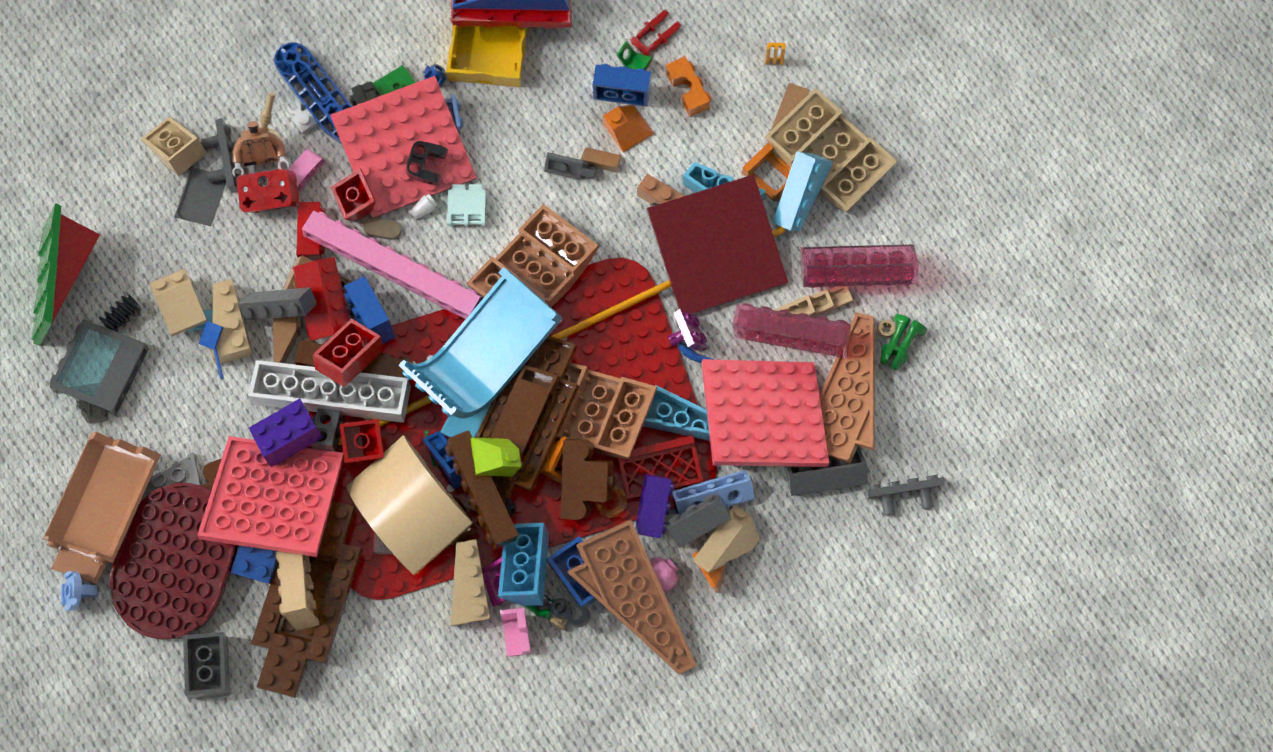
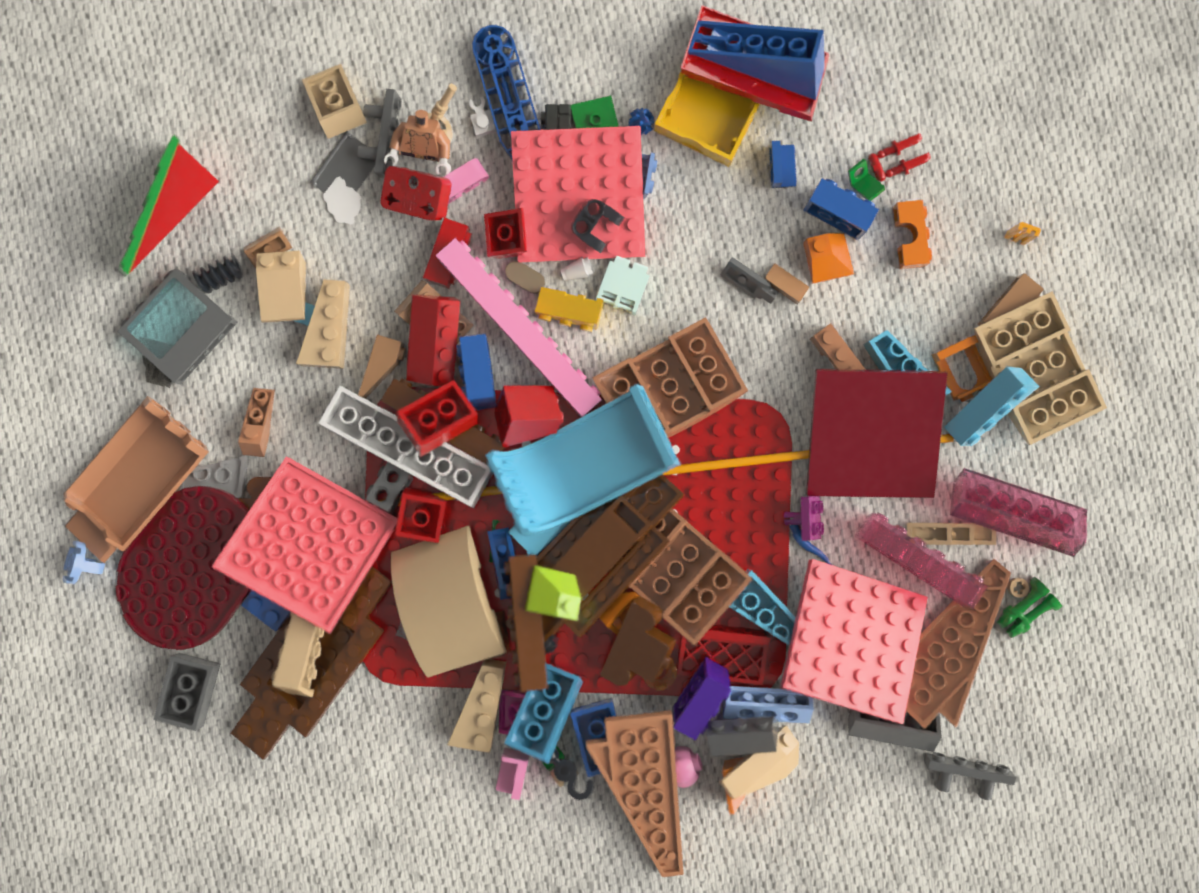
camera: 20 degrees right, 15 degrees up
(159, 271) = (272, 242): none -> medium nougat slope
(194, 422) = (257, 423): none -> nougat slope
(207, 222) = (342, 201): none -> white sticker
(210, 339) = (301, 340): blue piece -> none
(277, 303) = (383, 329): dark grey brick -> none
(285, 432) = (343, 480): dark purple brick -> none
(421, 329) = (527, 413): none -> red slope
(428, 238) = (569, 309): none -> yellow wedge
(563, 70) = (782, 165): none -> blue panel

